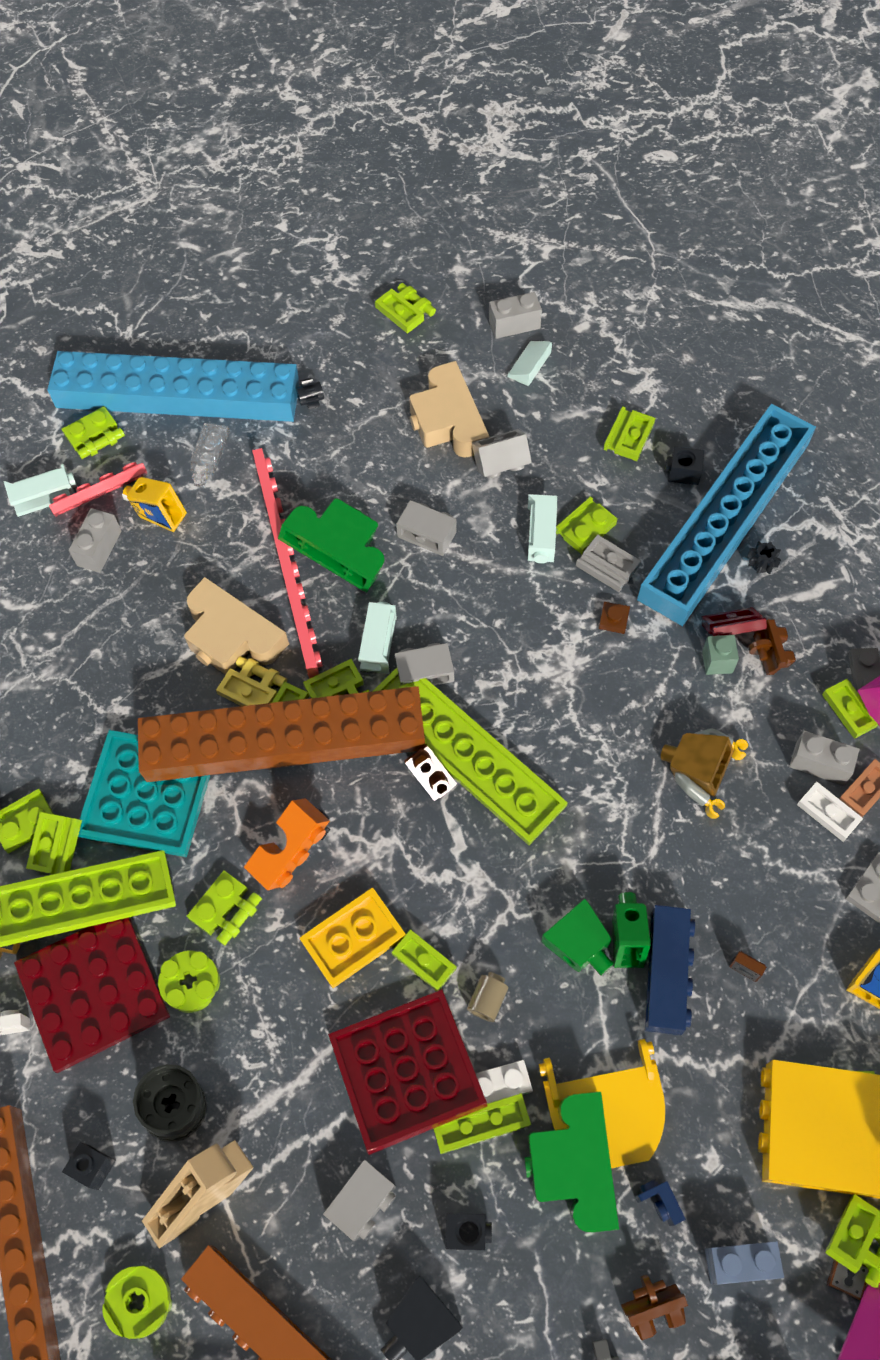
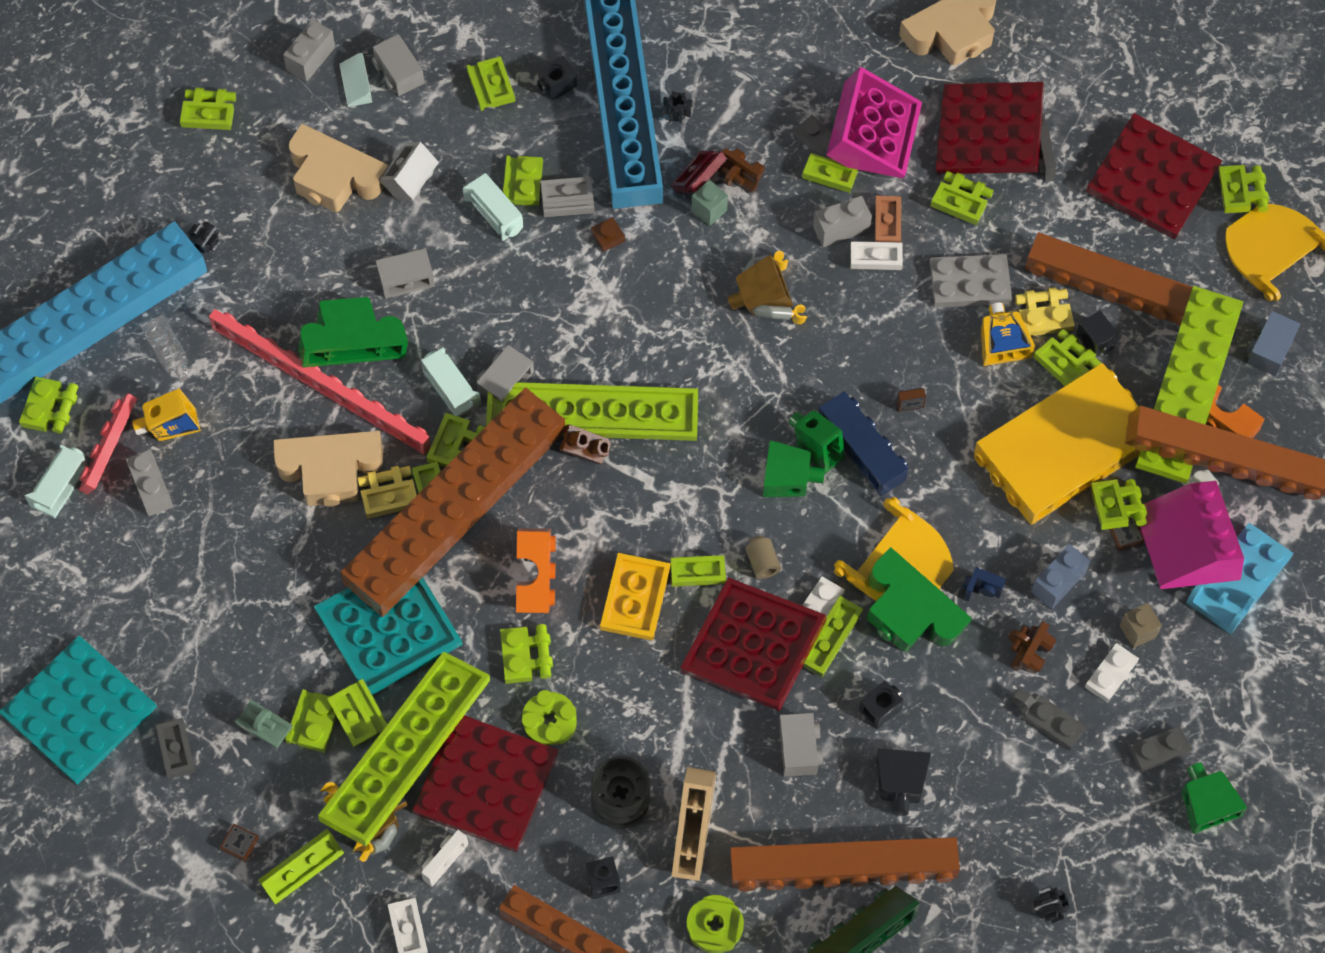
camera: 45 degrees left, 0 degrees up
(570, 370) = (398, 65): none -> light grey brick

